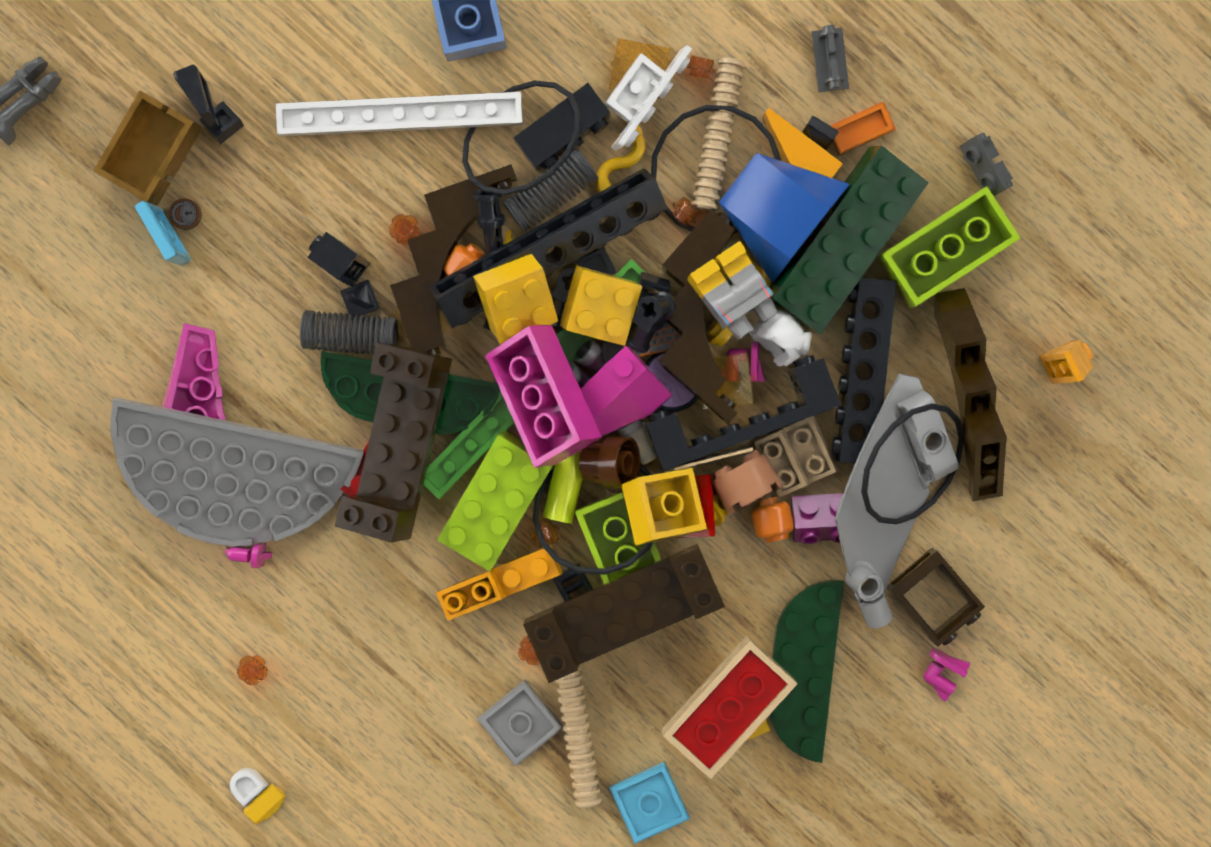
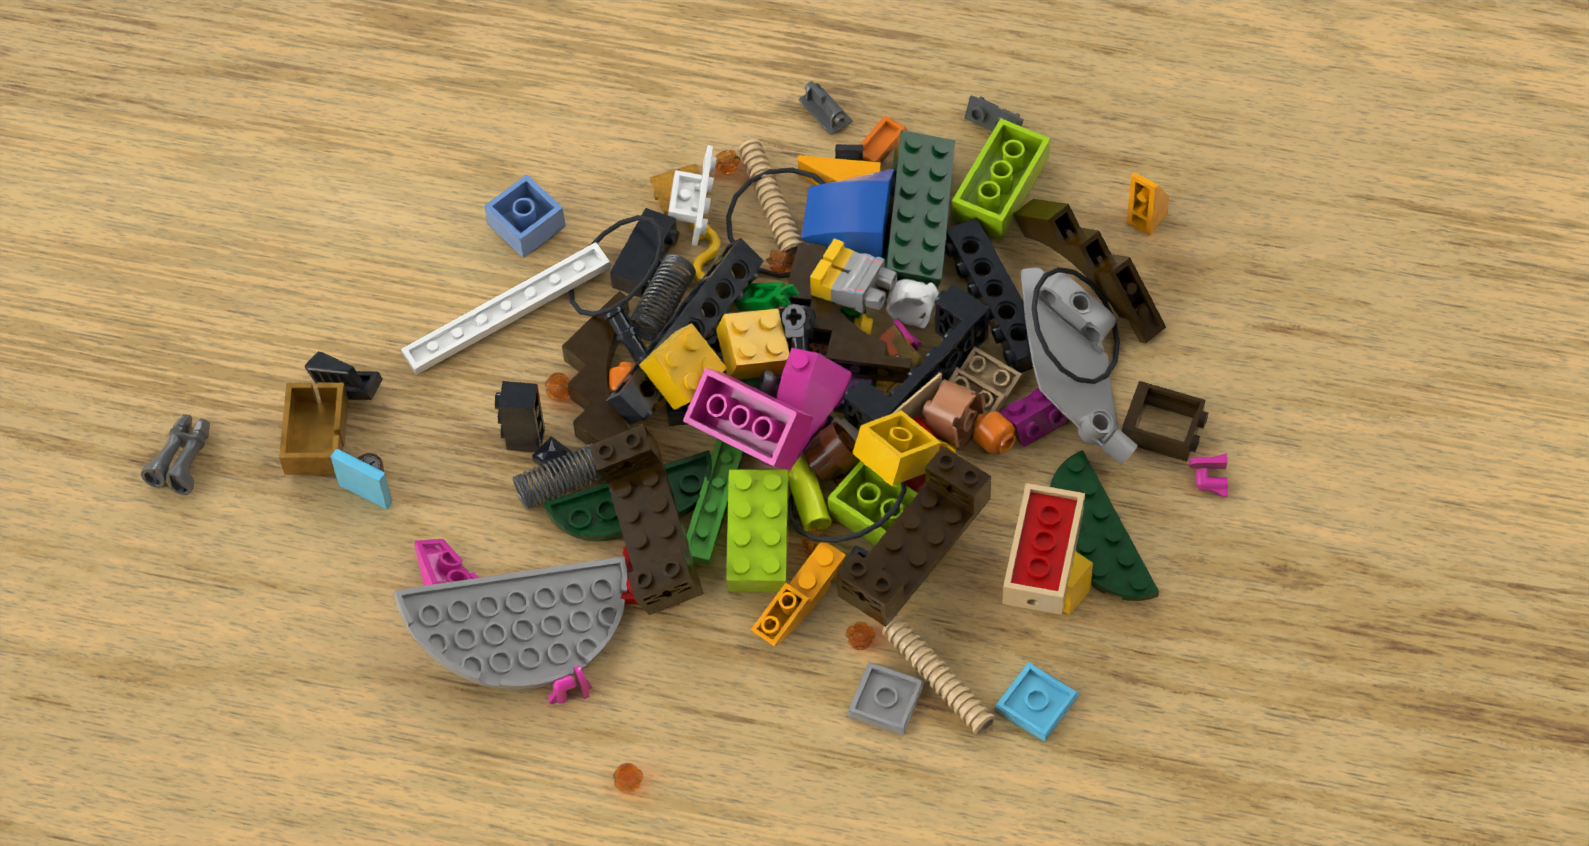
camera: 30 degrees left, 30 degrees down
(647, 253) = (766, 296): none -> green plate

